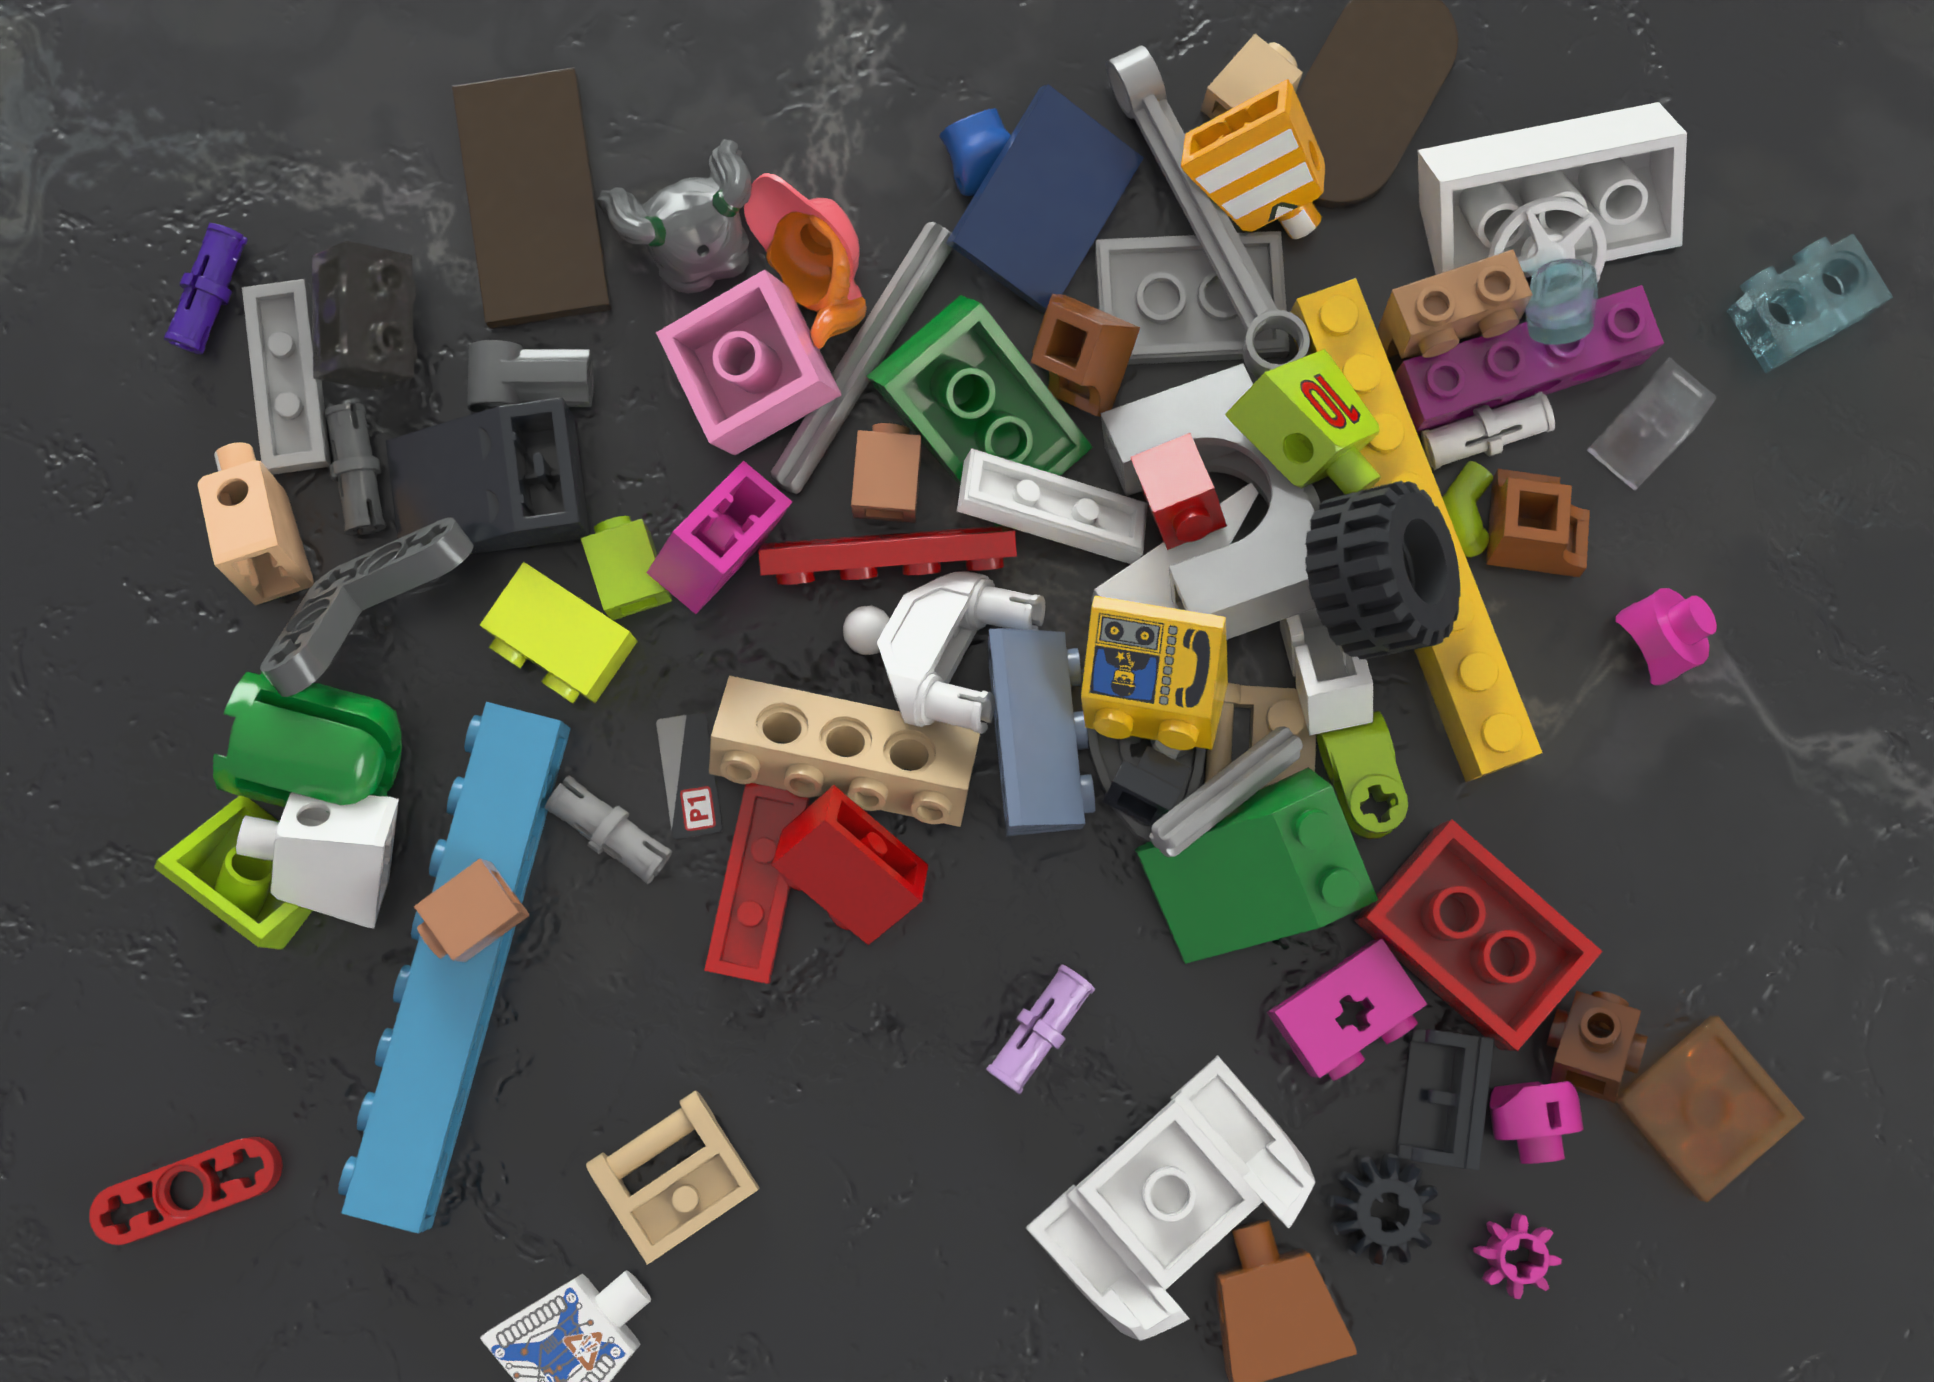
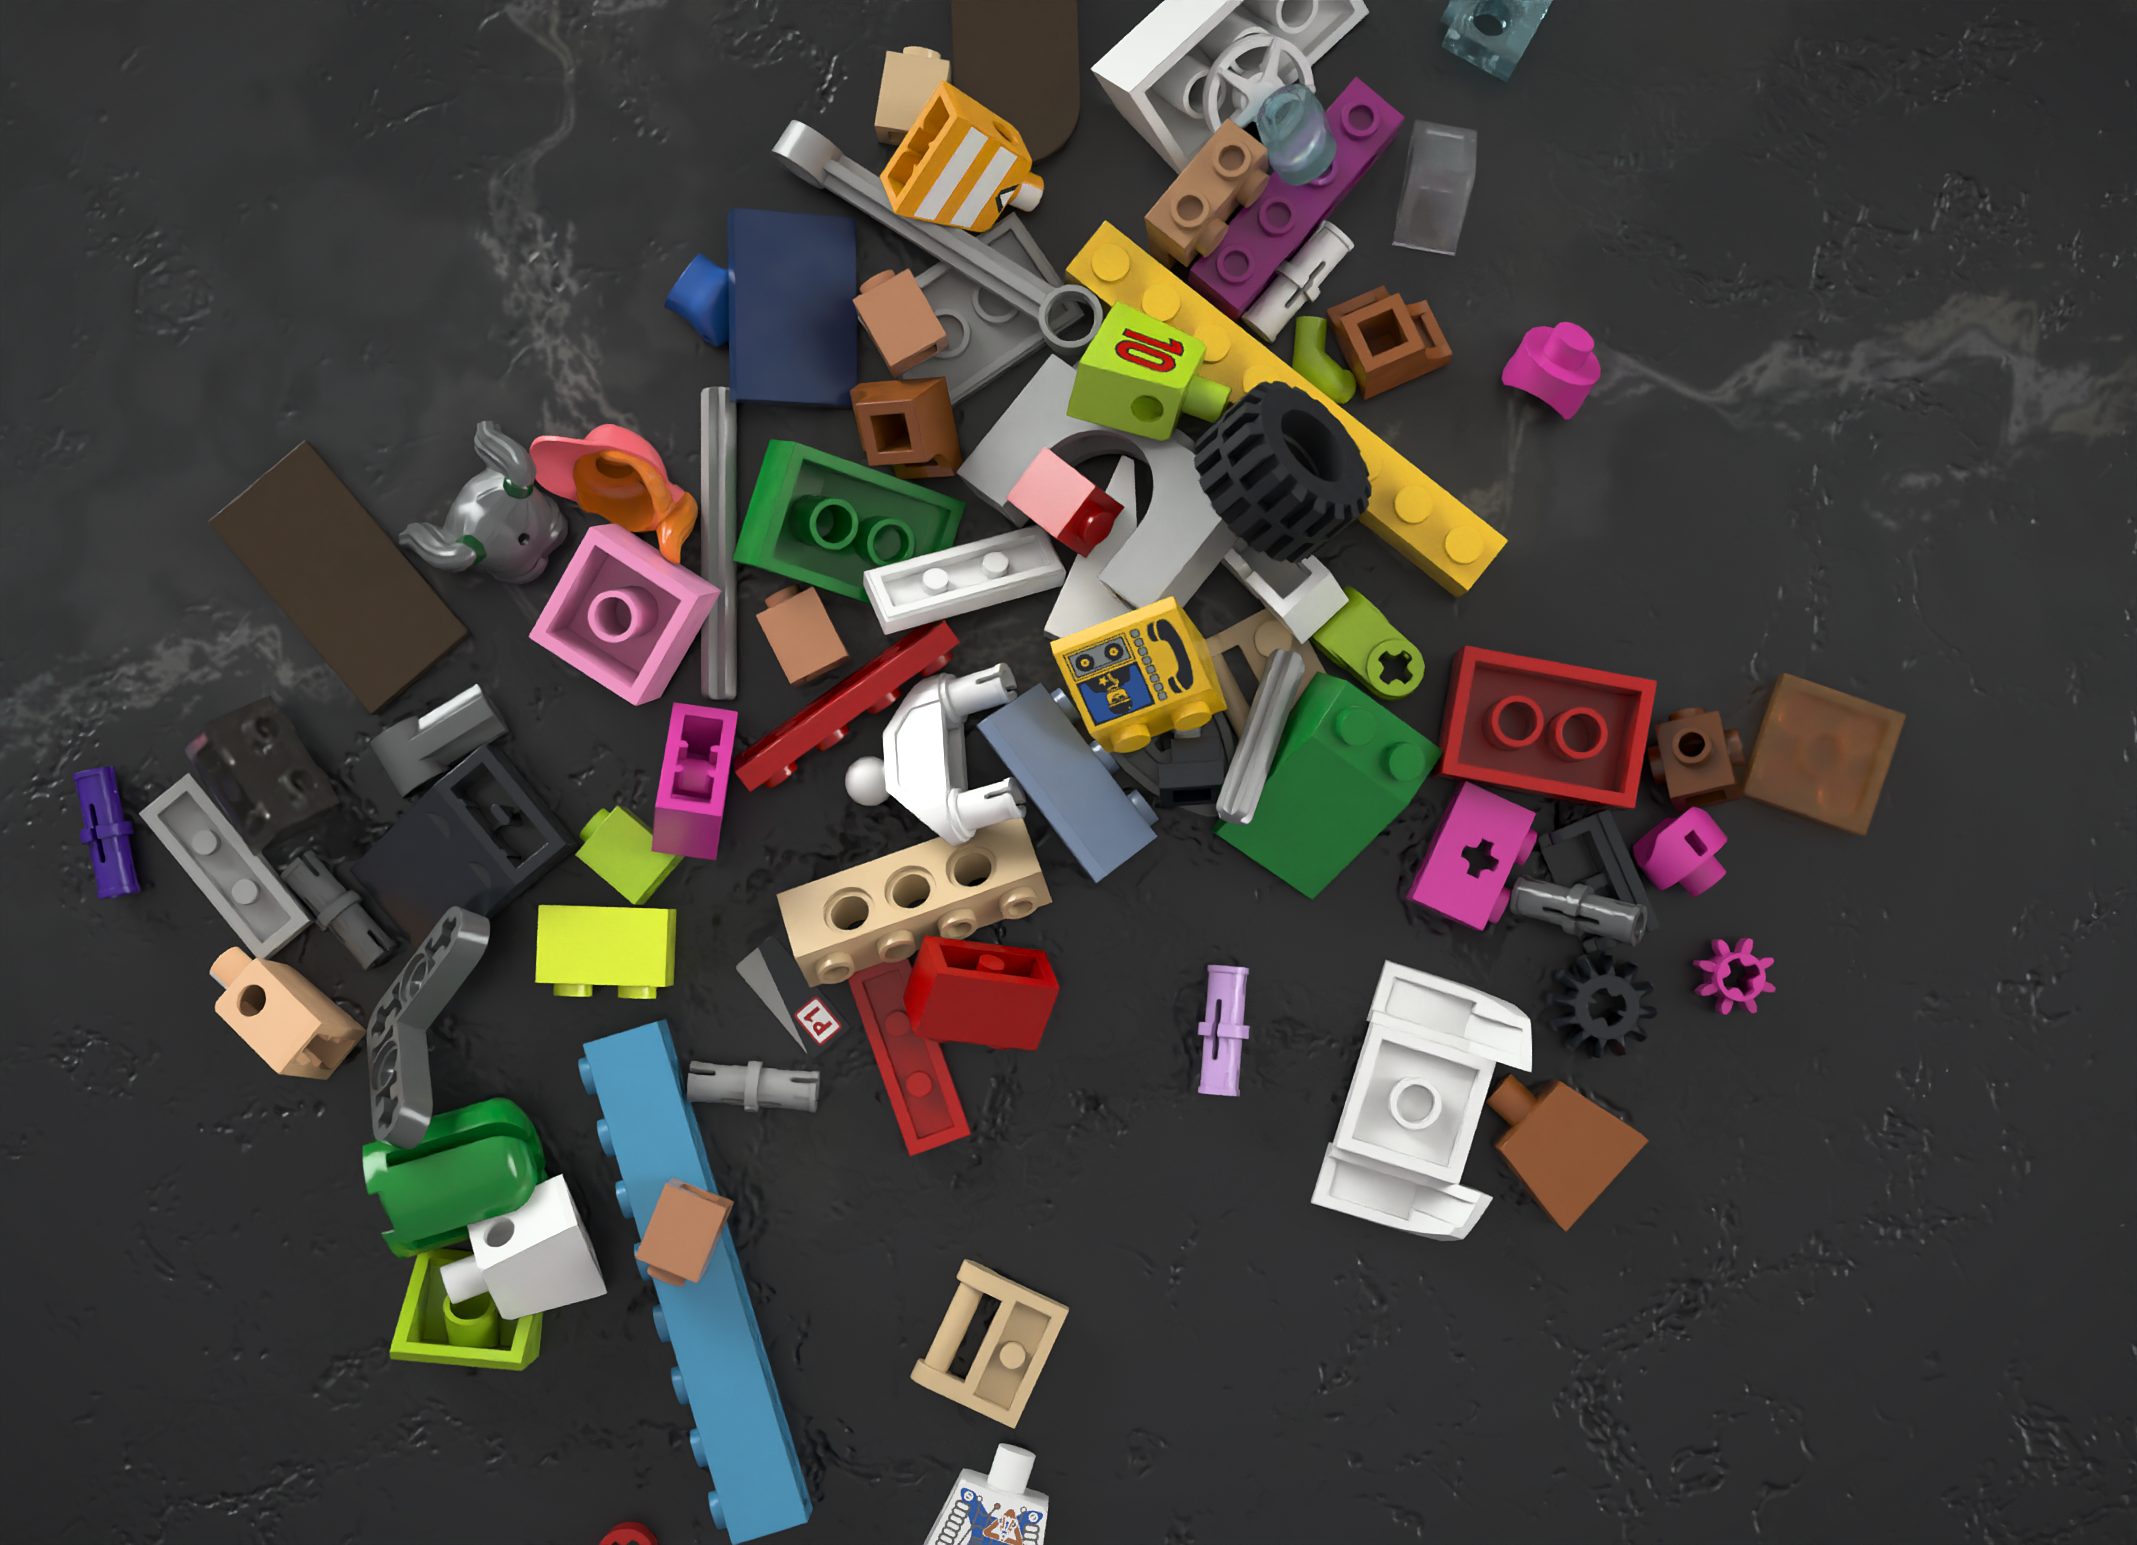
camera: 30 degrees left, 5 degrees up
(1130, 260) = (900, 320): none -> nougat brick
(1415, 1111) = (1578, 910): none -> dark grey pin

